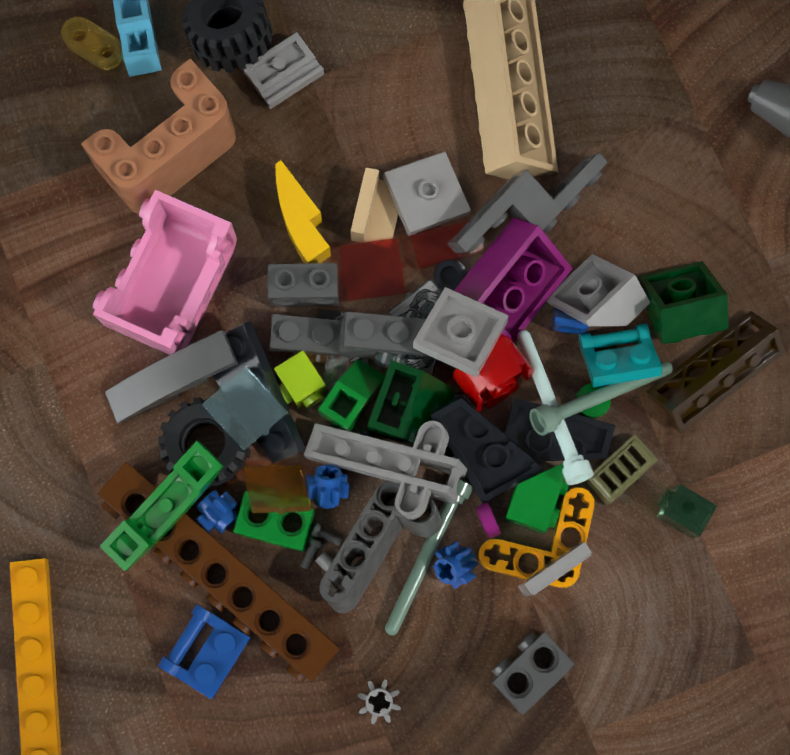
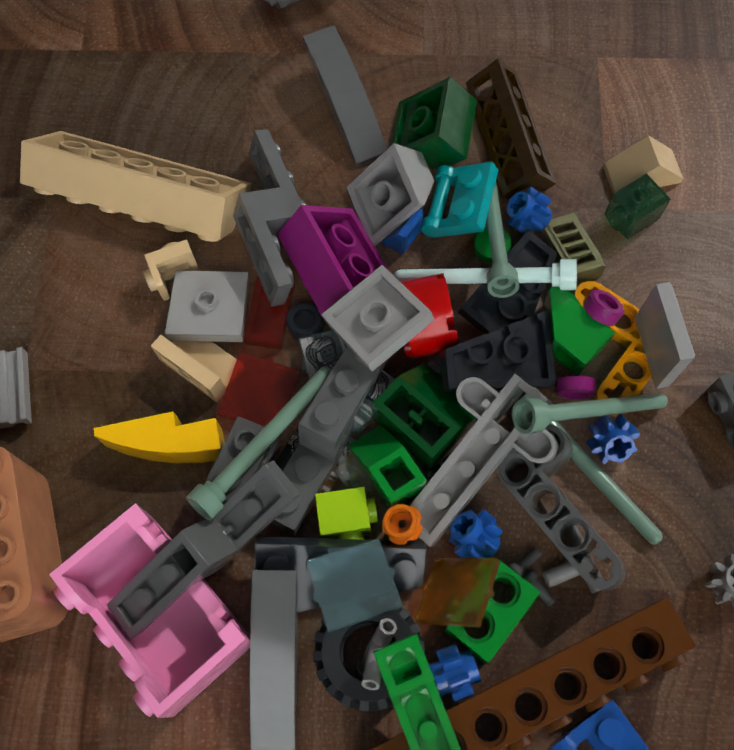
camera: 60 degrees left, 10 degrees down
(213, 445) = (367, 668): none -> light grey piece
(224, 288) = (202, 549): none -> dark grey bracket
(261, 273) = (208, 498): none -> sand green piece
(309, 417) = (392, 519): none -> orange plate
(426, 486) = (535, 415): none -> sand green piece
(446, 141) = (164, 262): none -> tan bracket
(566, 514) = (603, 307): none -> magenta tile
(635, 419) = (529, 211): none -> blue gear
(679, 211) = (345, 95): none -> dark grey slope
(736, 505) = (641, 158): none -> tan slope

